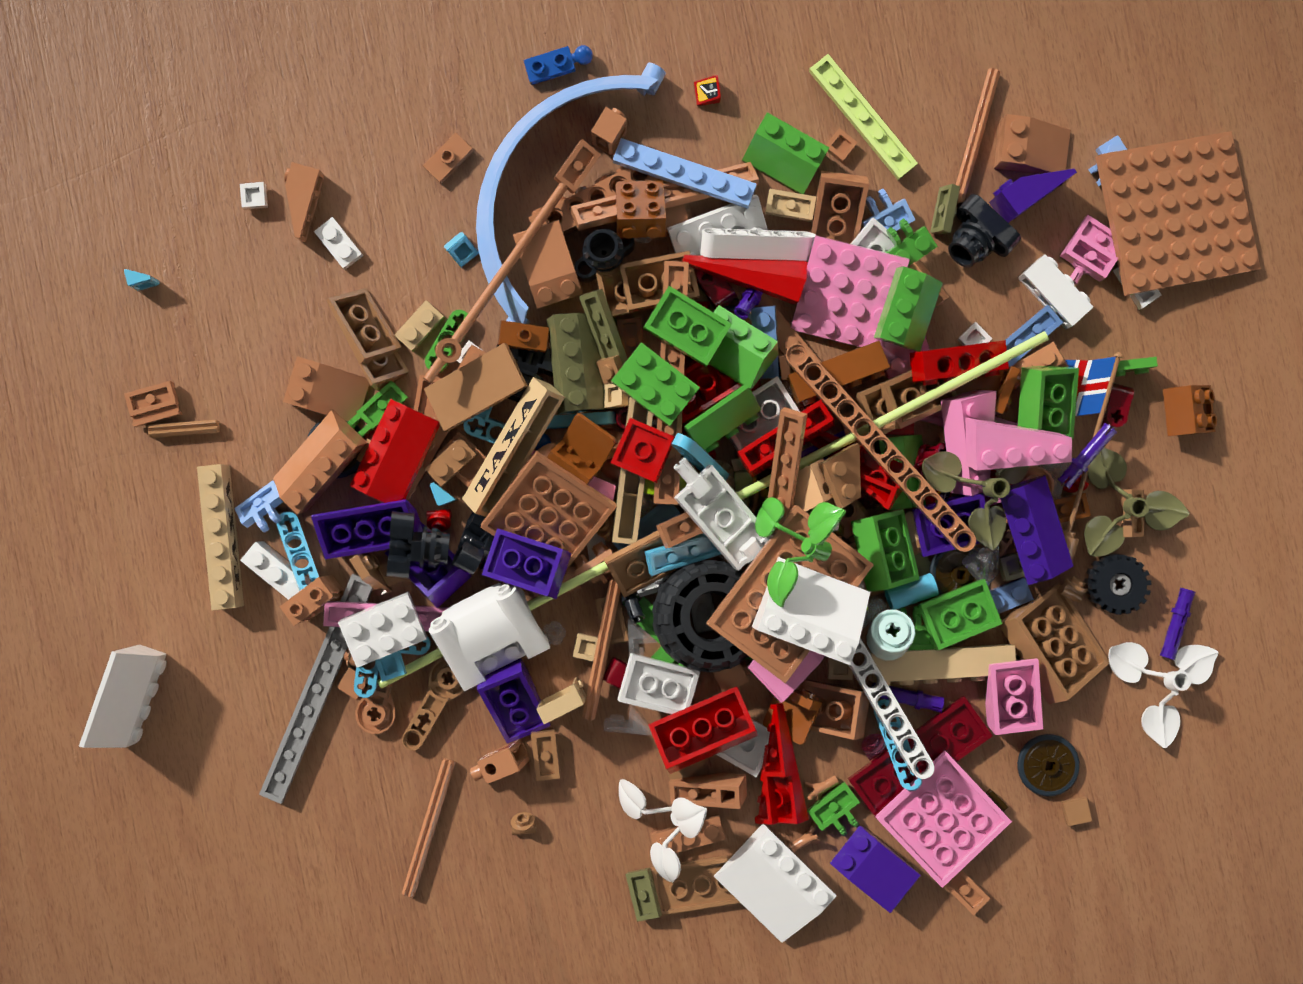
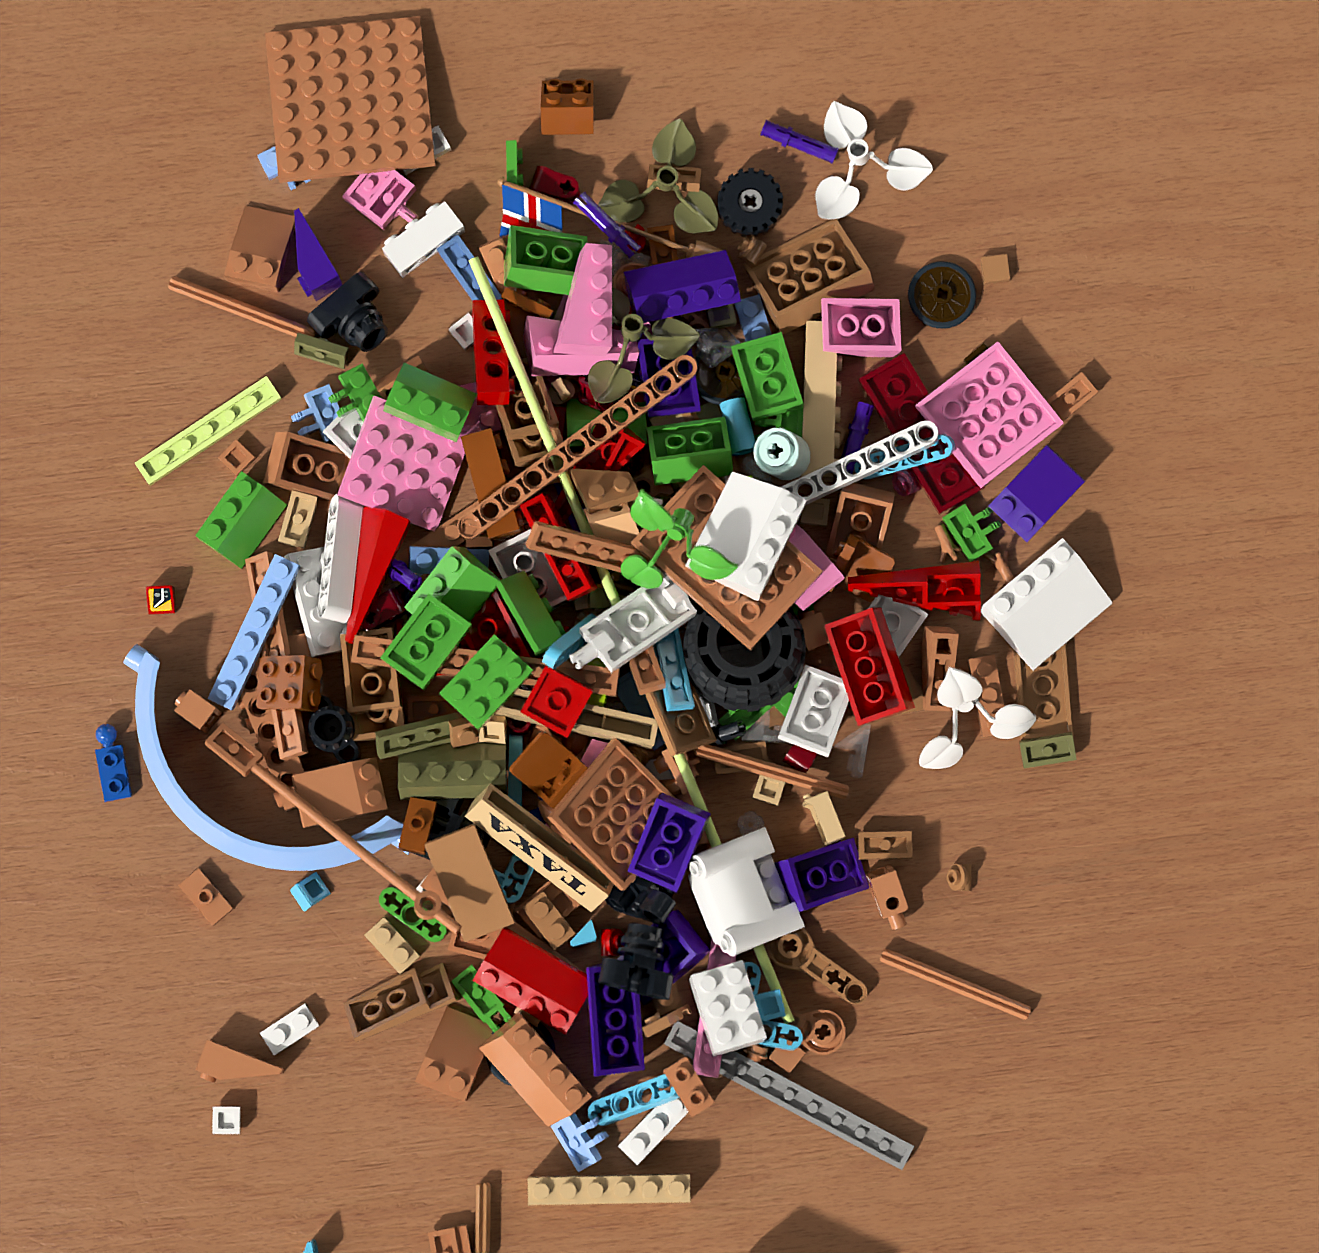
camera: 80 degrees left, 5 degrees down
(928, 428) = (561, 391): none -> tan piece

